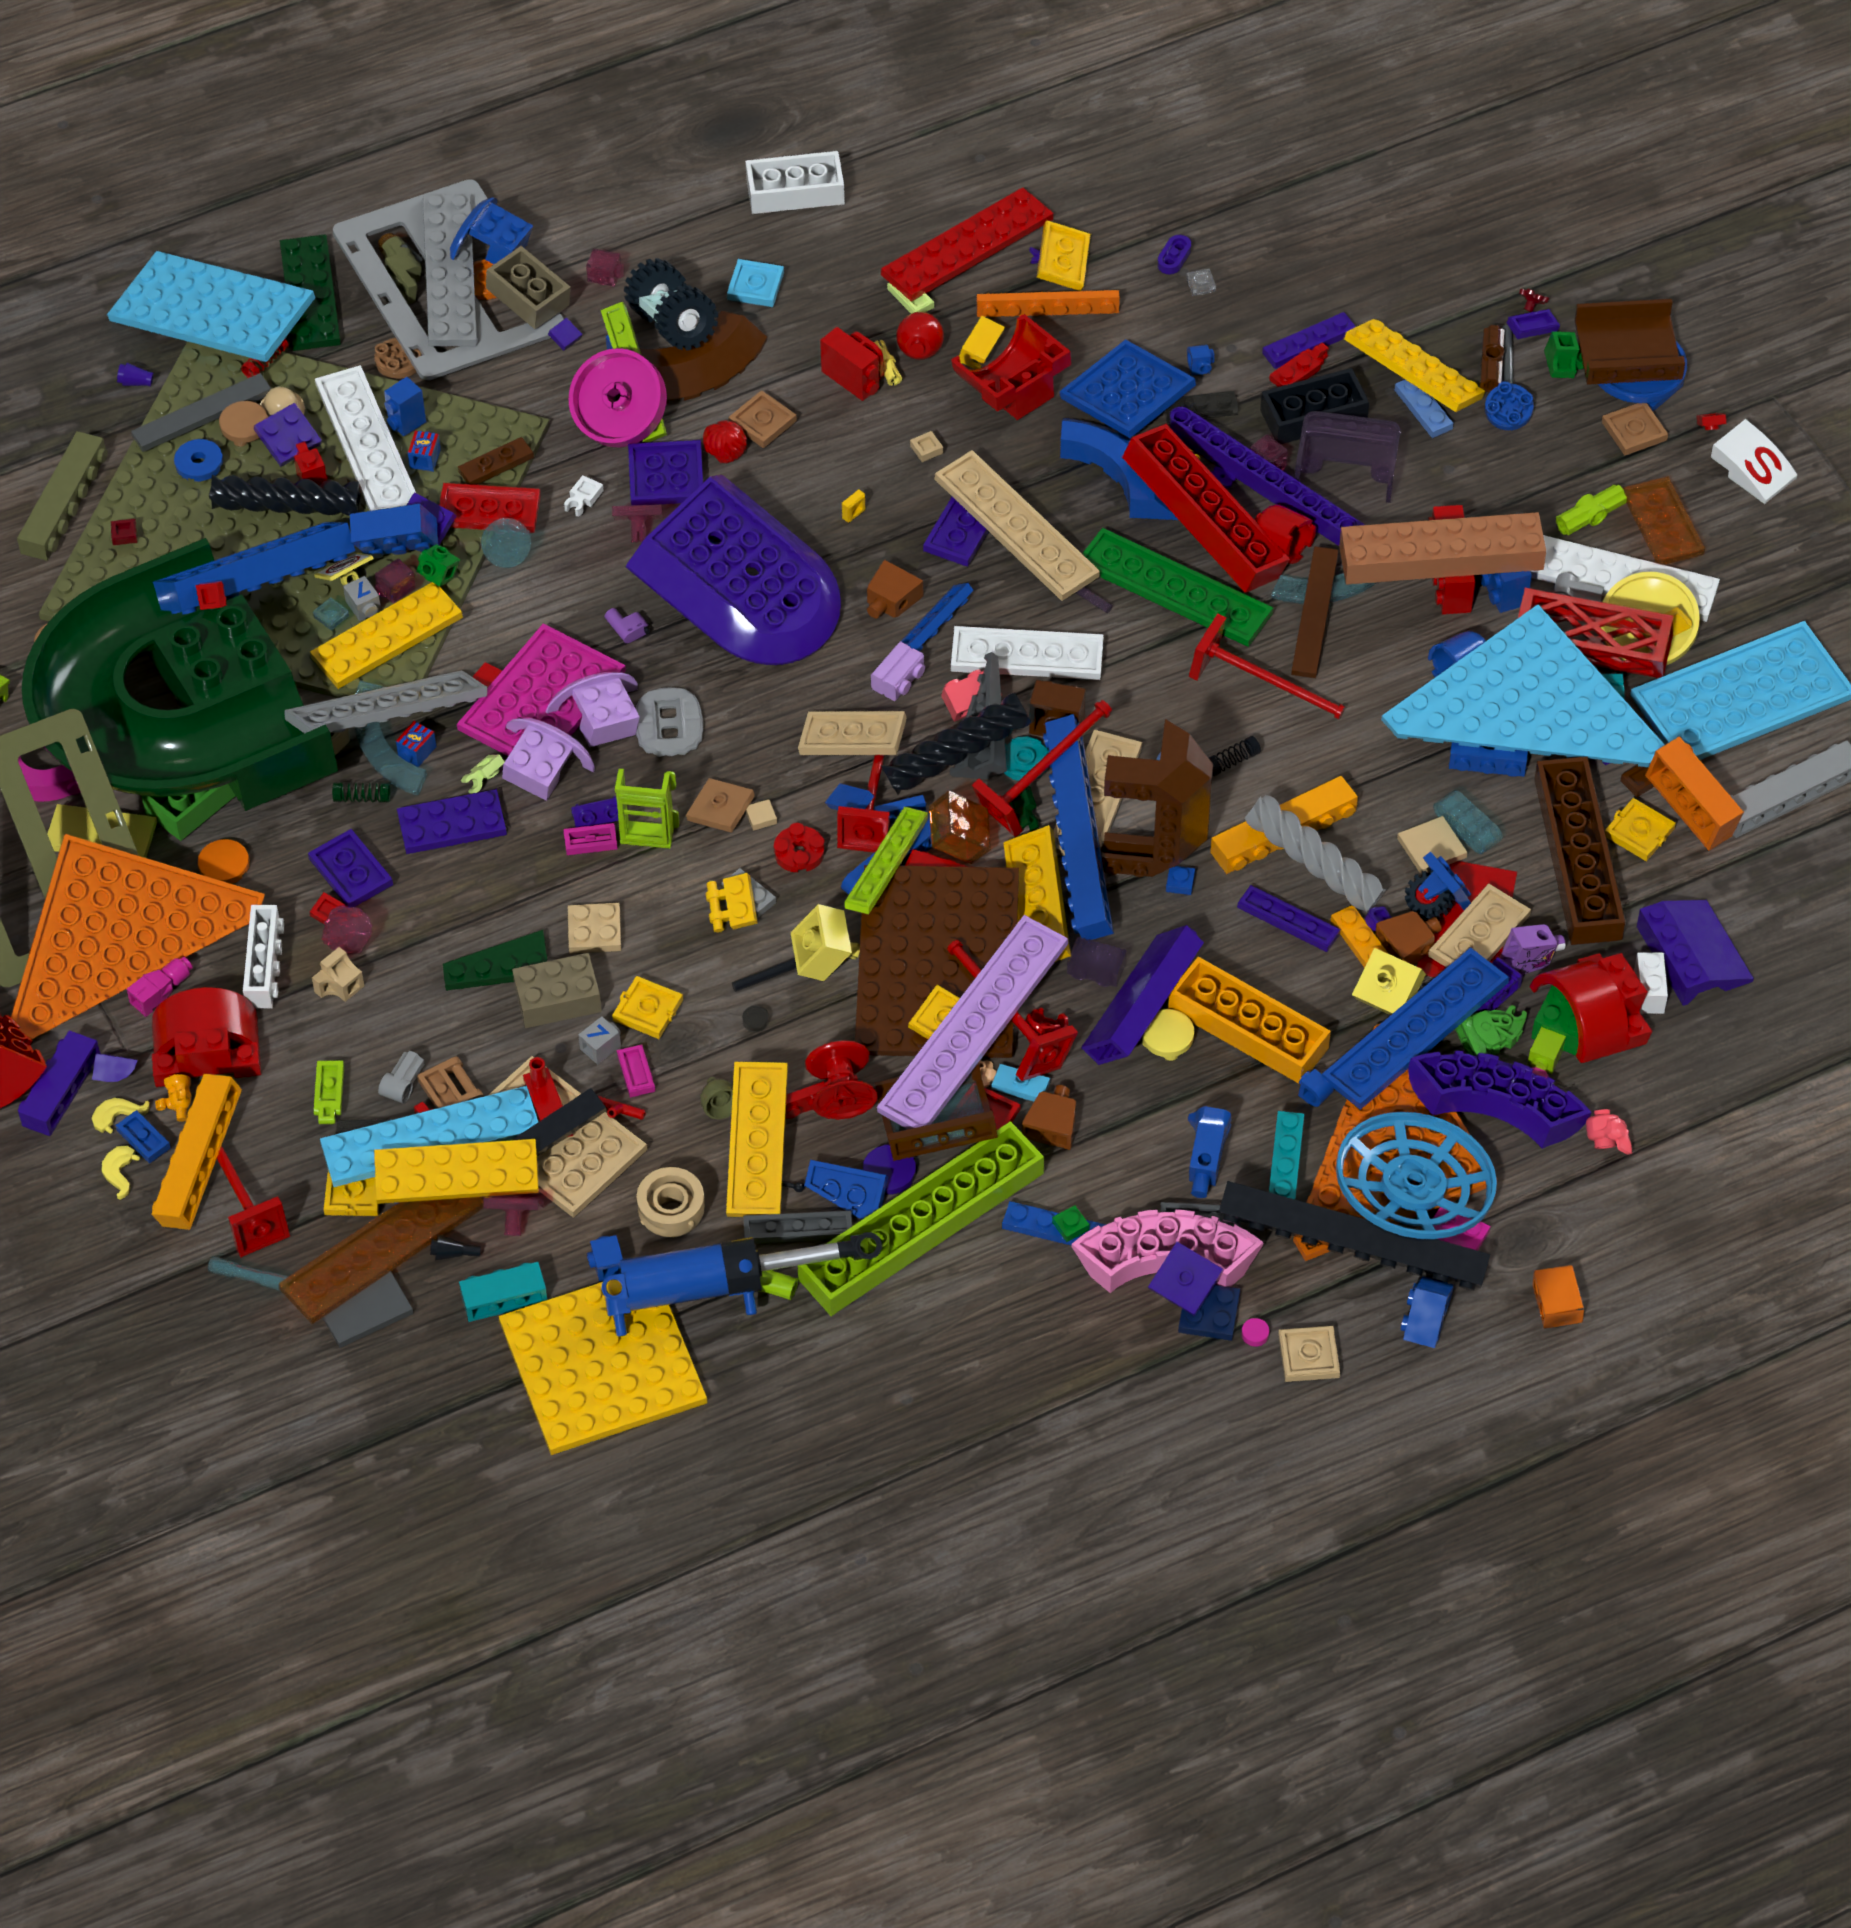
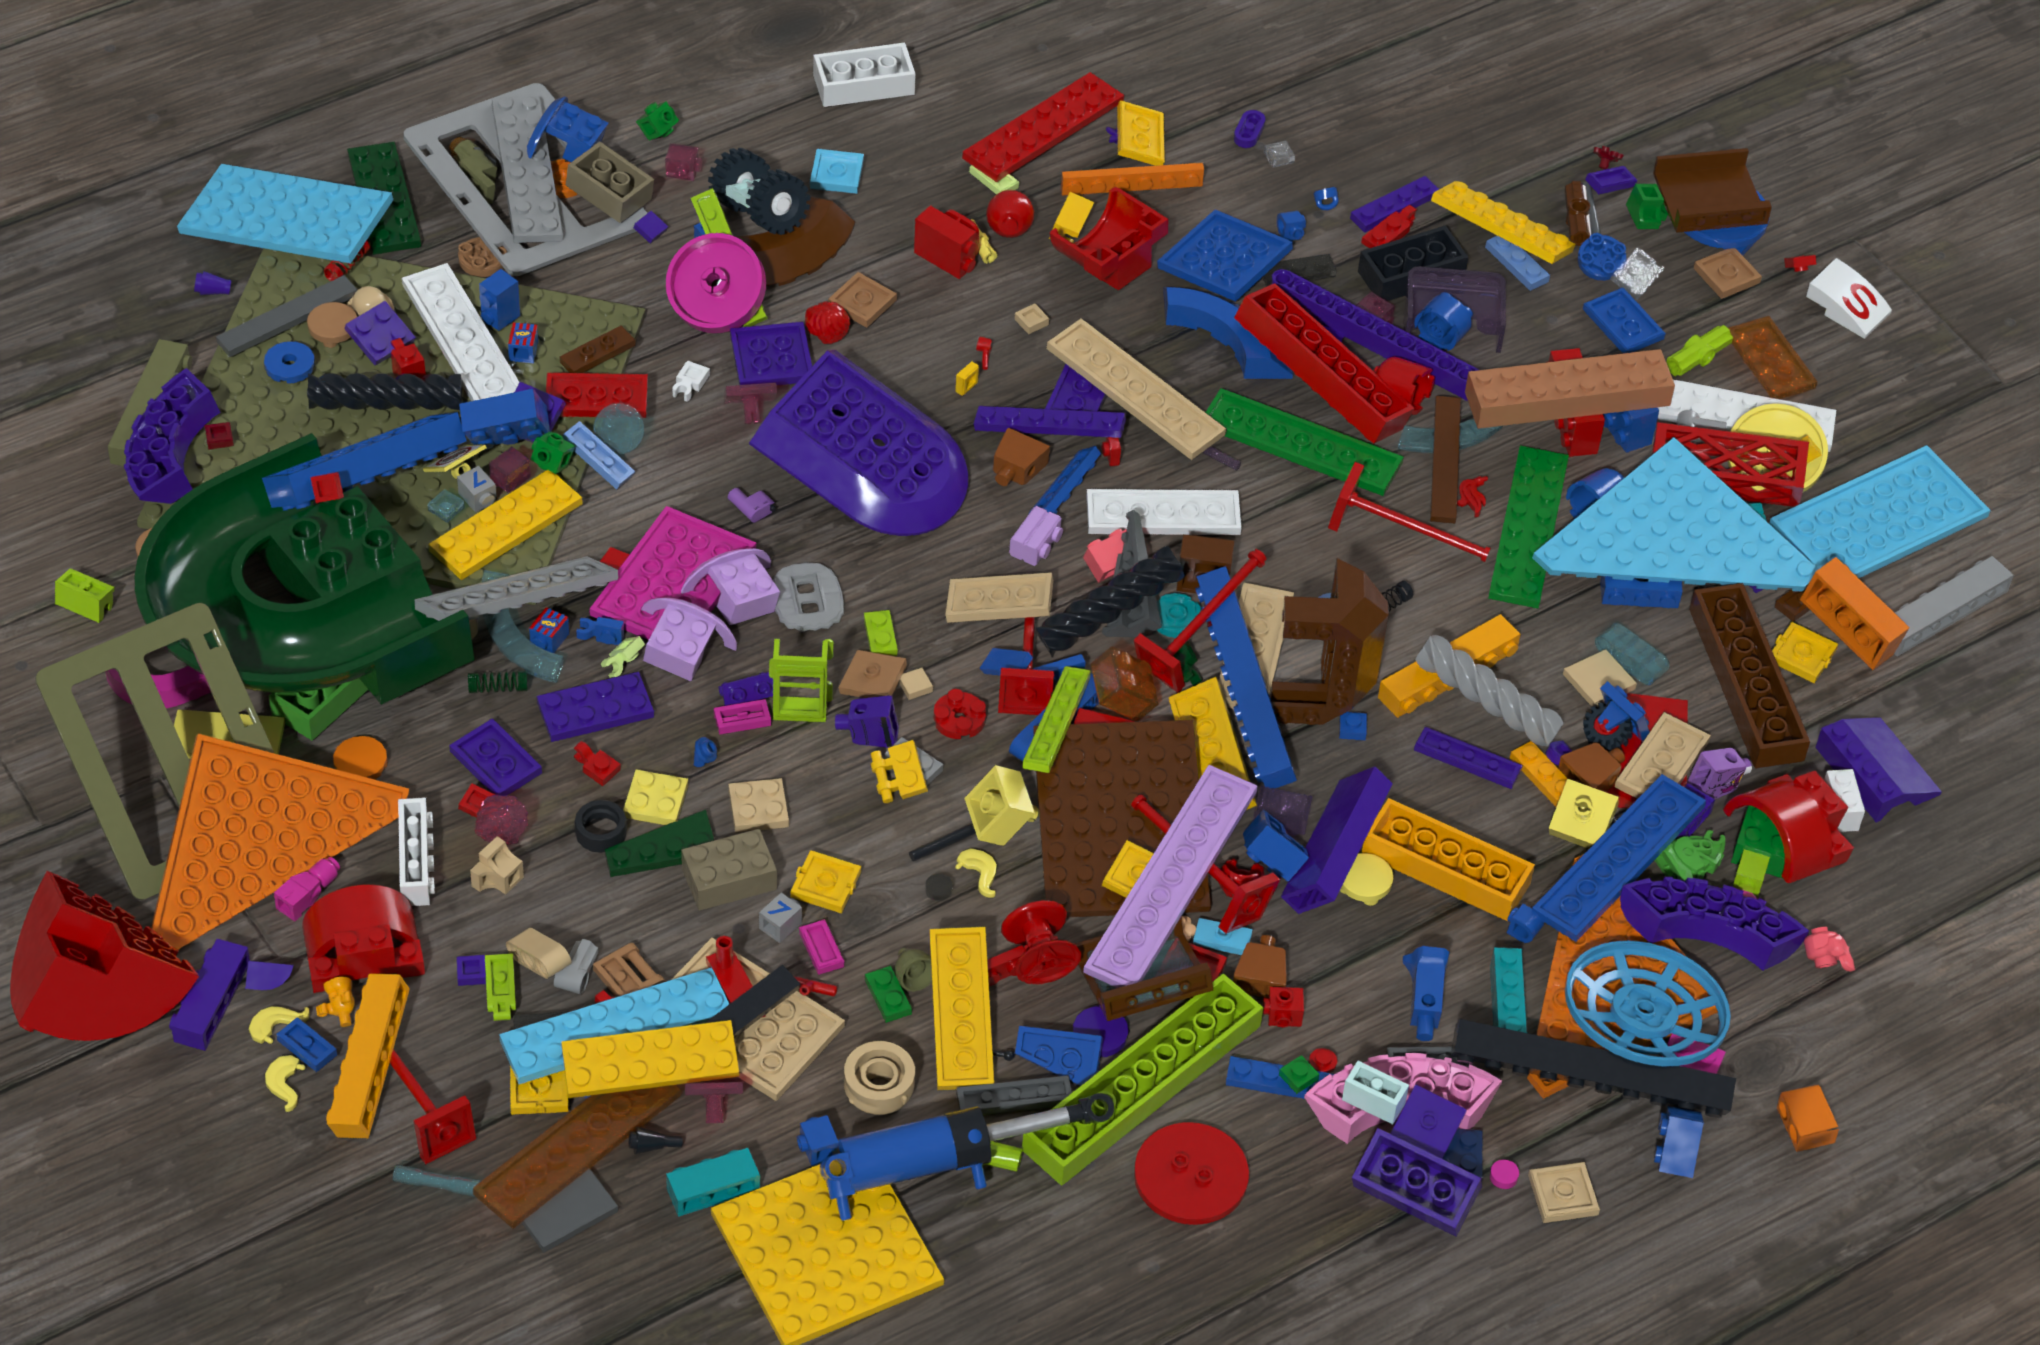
camera: 10 degrees left, 5 degrees down
(69, 533) = (163, 436): none -> dark purple brick
(302, 1074) = (471, 970): none -> dark purple plate
(366, 1062) = (538, 953): none -> tan beam
(441, 924) = (595, 810): none -> black tyre
(446, 881) = (596, 766): none -> red plate
(470, 746) = (606, 630): none -> blue plate
(483, 569) = (598, 455): none -> medium blue plate
(497, 915) = (655, 797): none -> light yellow plate
(549, 872) = (704, 752): none -> blue plate
(585, 223) = (657, 120): none -> green brick
(692, 1120) = (888, 994): none -> green plate
(711, 851) = (871, 721): none -> dark purple torso
(734, 762) = (880, 633): none -> lime plate
(799, 996) = (984, 864): none -> light yellow piece
(876, 472) = (984, 346): none -> red hand
(927, 555) = (1050, 421): none -> dark purple plate
(955, 1312) = (1191, 1173): none -> red plate
(985, 585) = (1112, 450): none -> red plate
(1068, 1156) = (1284, 1007): none -> red brick
(1078, 998) = (1271, 844): none -> blue brick
(1098, 1211) = (1323, 1060): none -> red plate
(1135, 1247) = (1375, 1092): none -> light aqua brick
(1166, 1335) = (1417, 1182): none -> dark purple brick
(1240, 327) = (1324, 194): none -> blue tile
(1334, 469) = (1443, 321): none -> blue brick
(1336, 650) = (1470, 495): none -> red piece
(1387, 682) = (1528, 526): none -> green plate
(1521, 475) = (1624, 321): none -> blue tile
(1542, 425) = (1637, 273): none -> clear plate

